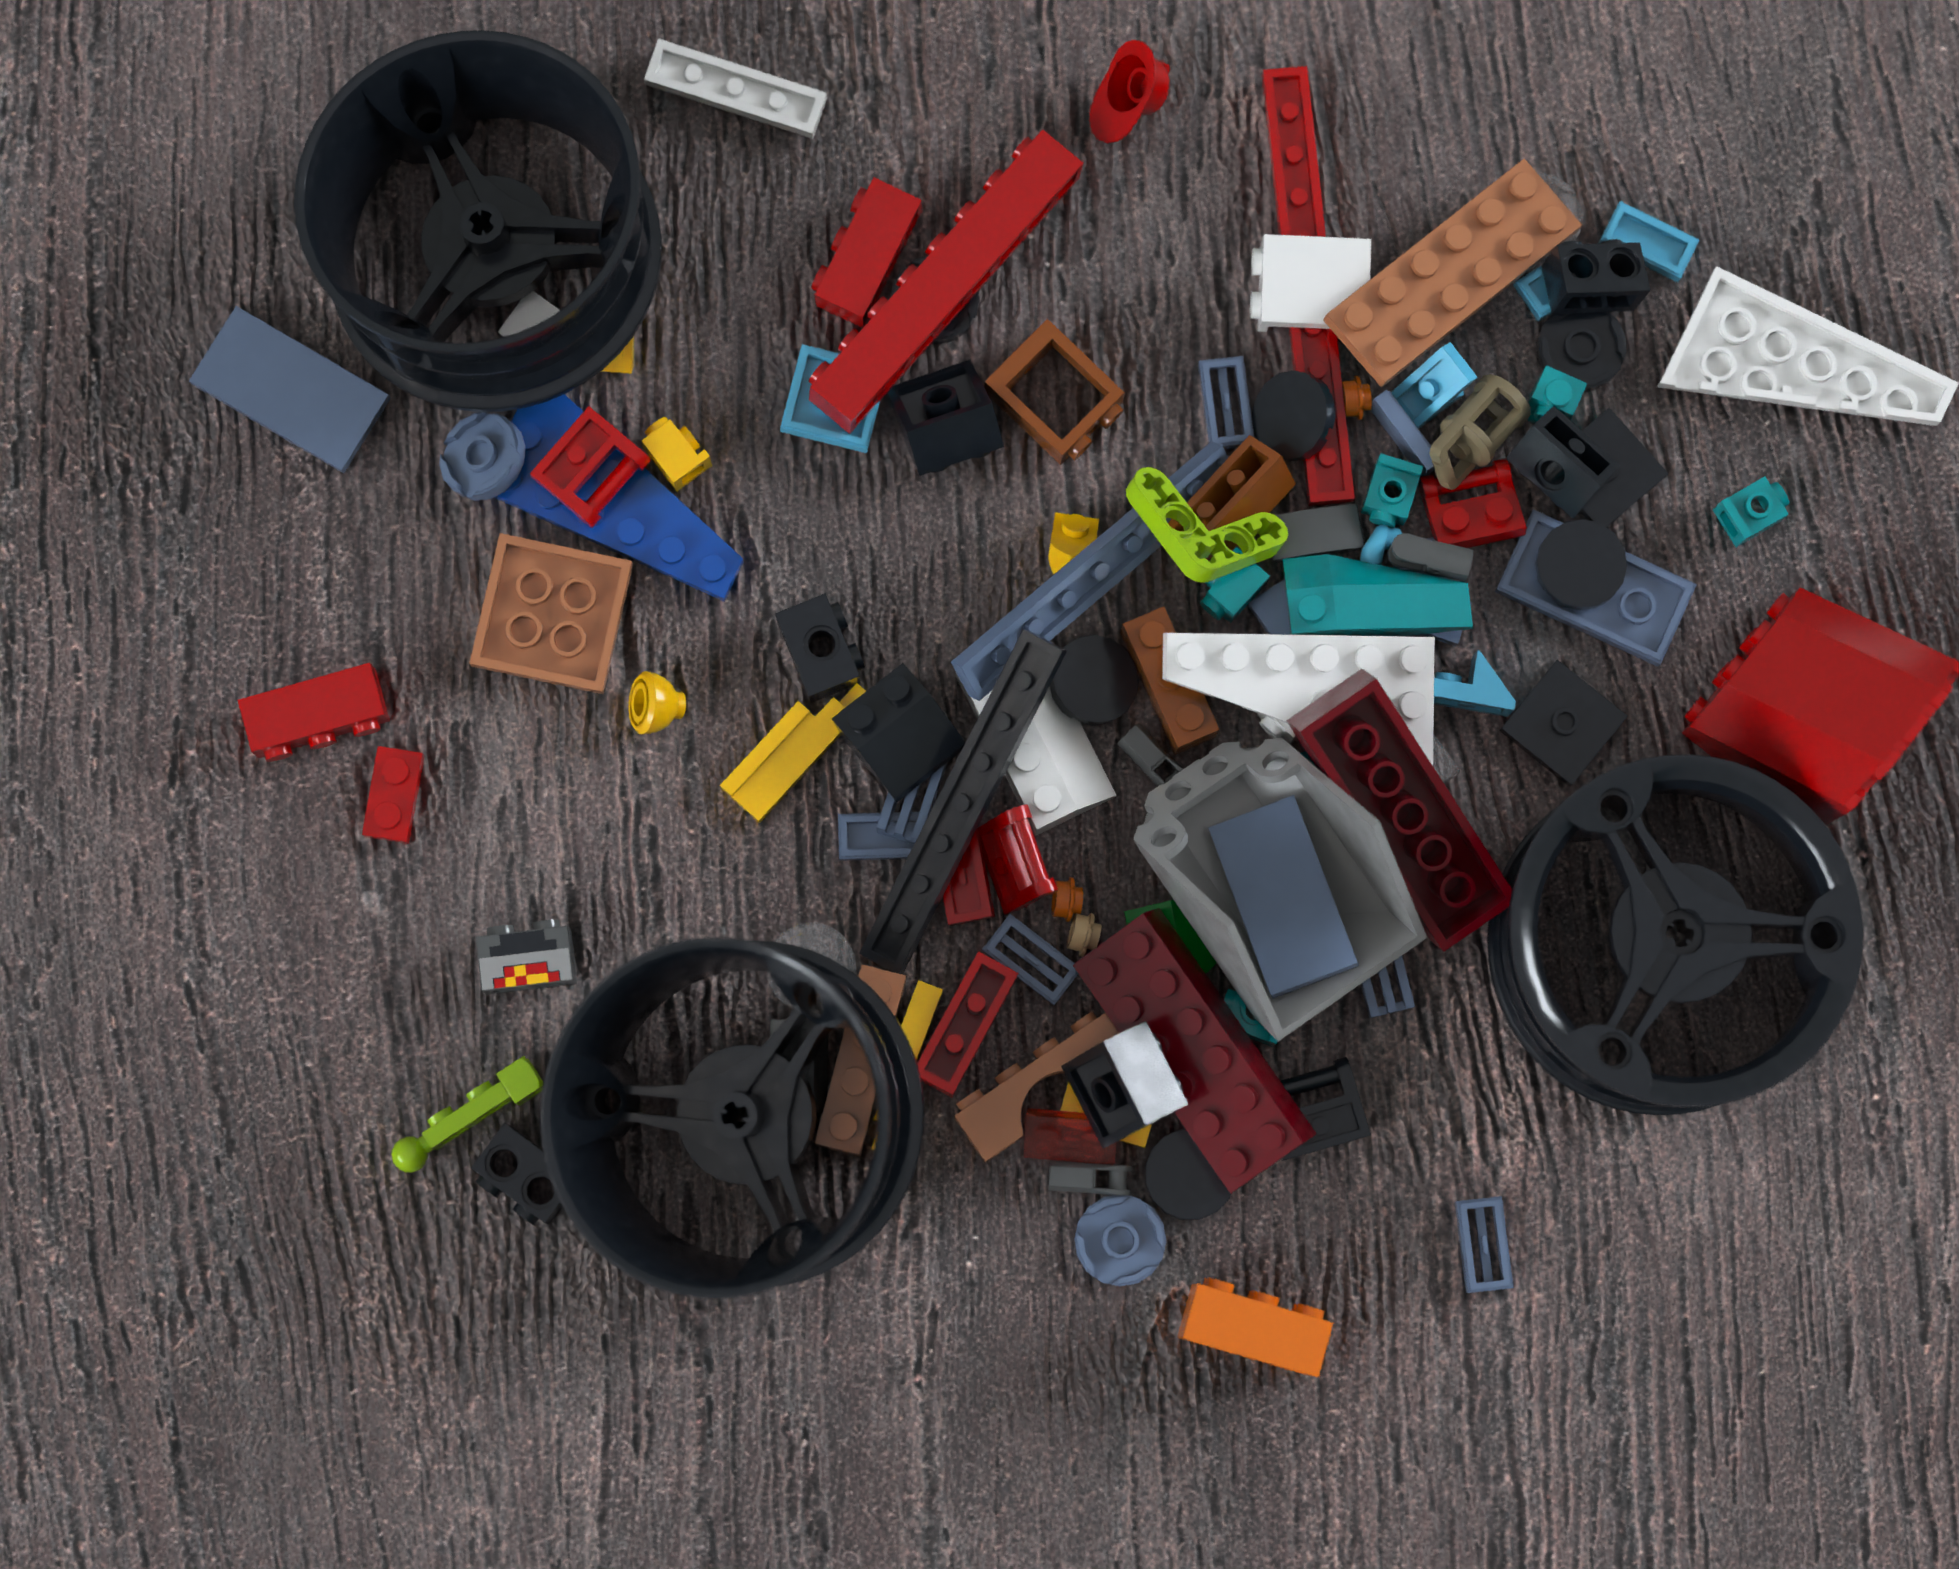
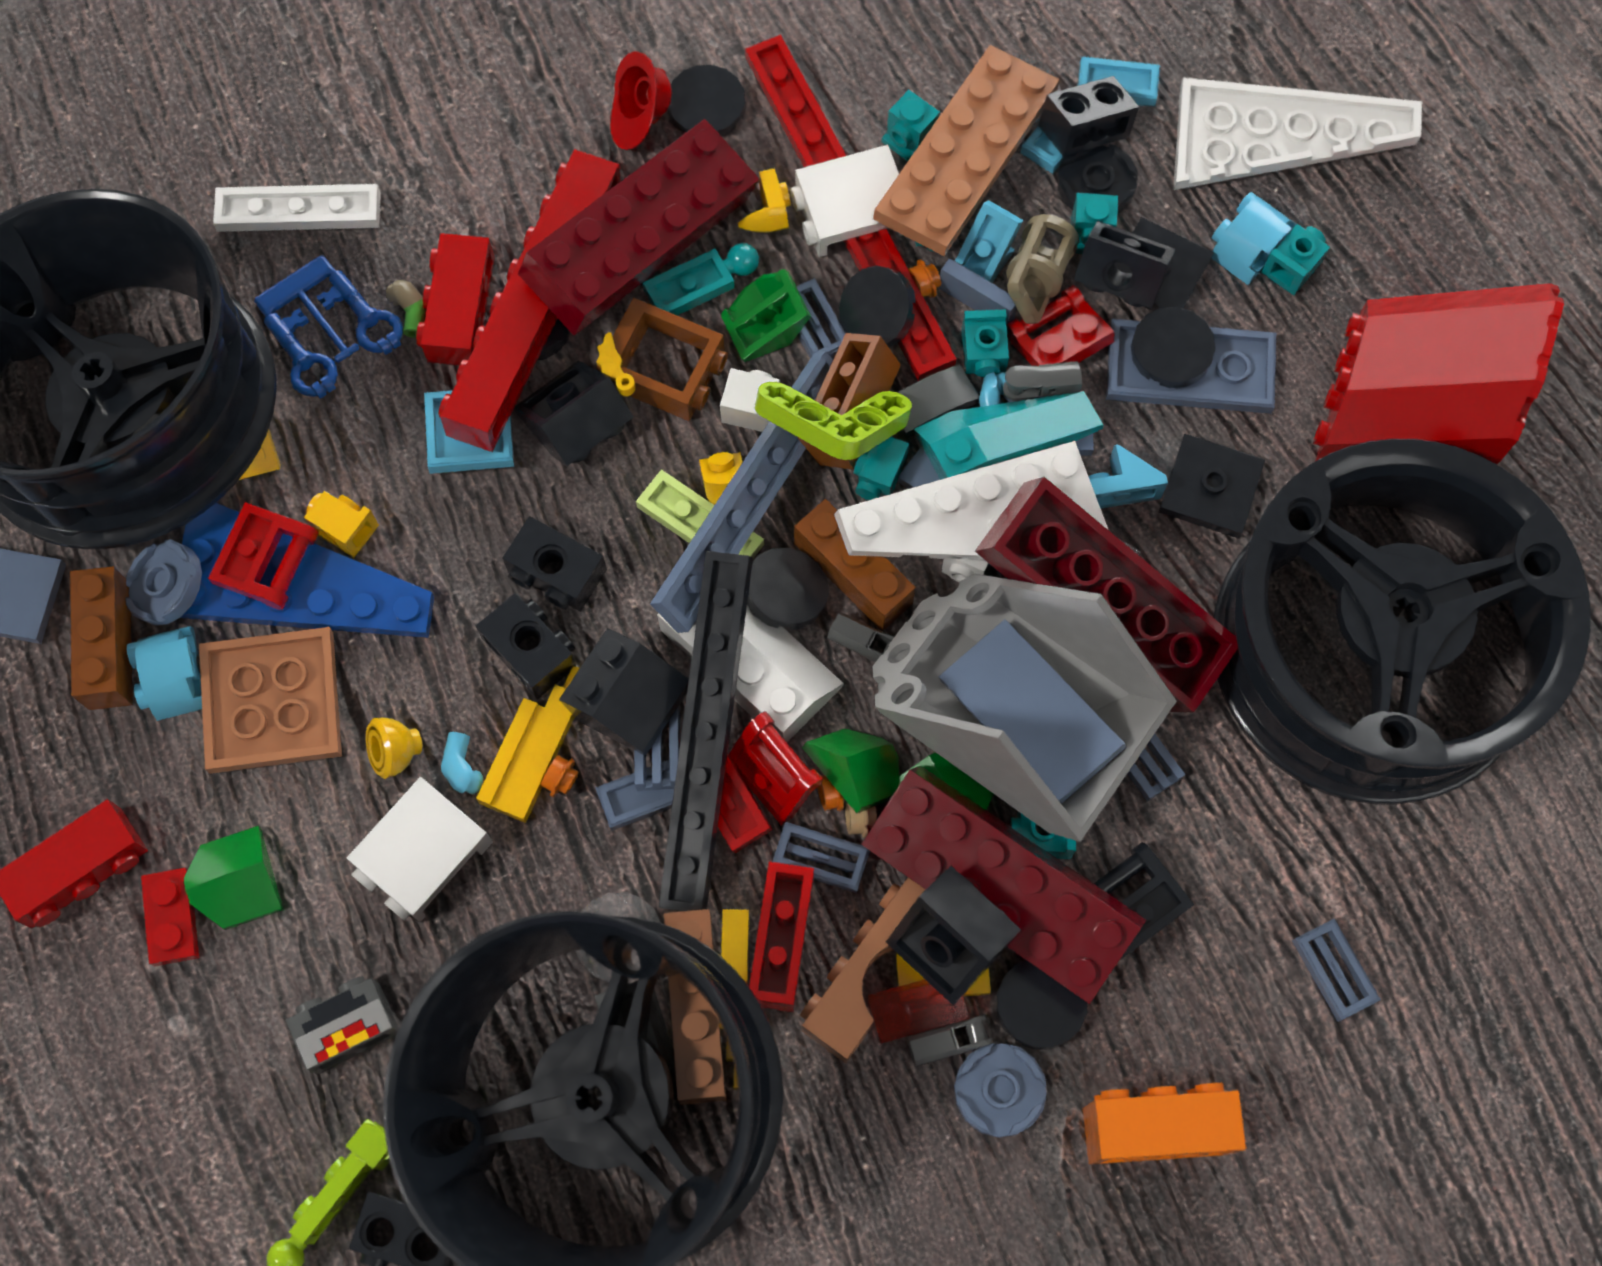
camera: 15 degrees left, 10 degrees down
(406, 493) = (100, 638): none -> dark orange brick
(460, 549) = (167, 673): none -> medium azure cylinder
(463, 779) = (233, 880): none -> green slope
(647, 816) = (417, 849): none -> white panel
(707, 175) = (282, 329): none -> blue piece
(710, 747) = (456, 768): none -> medium azure arm
(807, 791) = (560, 776): none -> orange plate
(820, 235) = (409, 298): none -> arm
(866, 548) = (540, 545): none -> black brick
(999, 386) = (611, 364): none -> yellow piece
(1021, 564) = (683, 510): none -> yellowish green plate
(1079, 246) = (637, 226): none -> dark red brick
(1098, 885) = (857, 765): none -> green slope
(1123, 316) = (700, 279): none -> teal plate
(1123, 460) = (740, 398): none -> white brick
(1176, 379) = (766, 315): none -> green slope
(1202, 113) = (707, 94): none -> black tile
(1233, 255) = (775, 200): none -> yellow plate
(1404, 221) = (909, 124): none -> teal brick
(1716, 471) = (1250, 237): none -> medium azure cylinder

